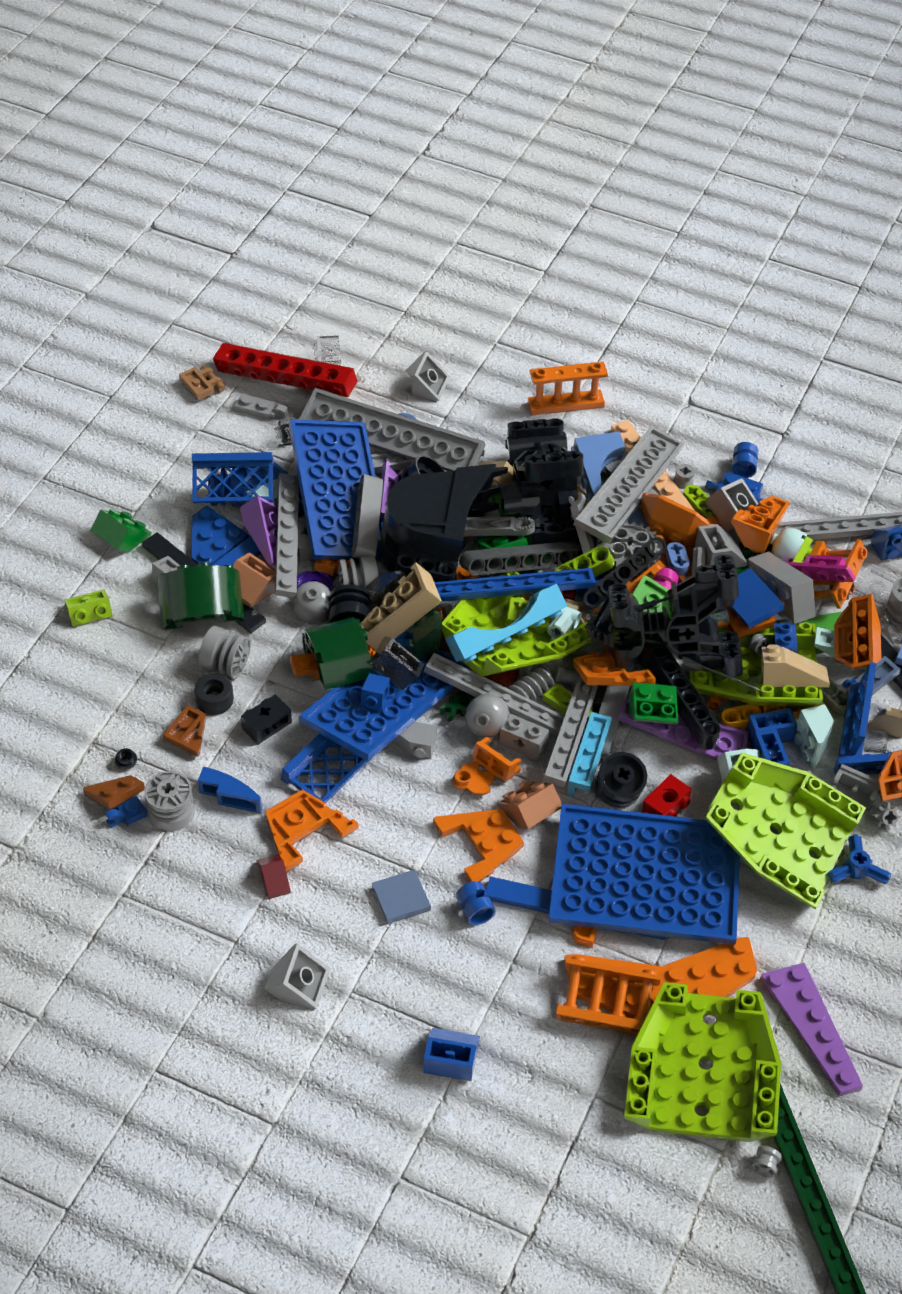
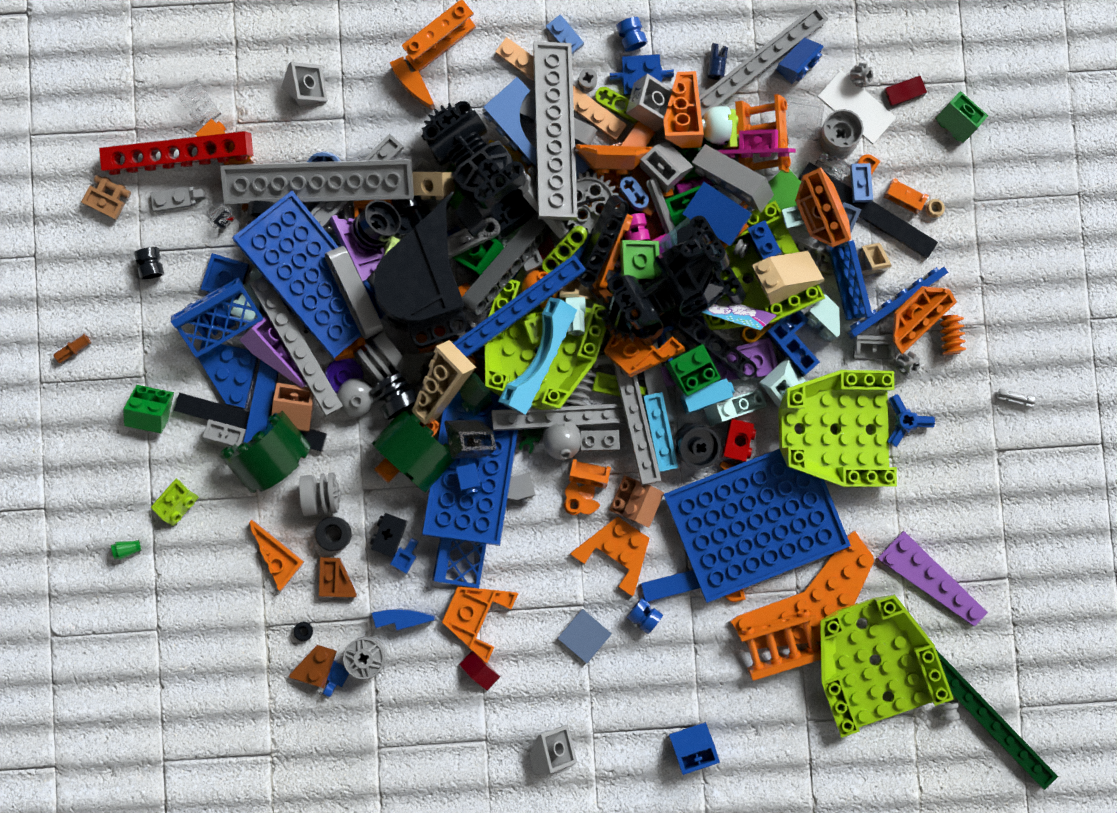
camera: 30 degrees left, 35 degrees up
(14, 619) = (125, 548): none -> green cone
(90, 464) = (72, 348): none -> dark orange axle
(149, 691) = (280, 560): none -> orange wing
(203, 434) = (149, 263): none -> black wheel
(268, 744) = (404, 558): none -> blue plate
(520, 409) = (412, 82): none -> orange slope
(660, 733) = (707, 396): none -> medium azure window
(664, 763) = (735, 407): none -> light aqua slope
(682, 433) = (564, 33): none -> medium blue plate
(815, 510) = (717, 63): none -> dark blue hinge

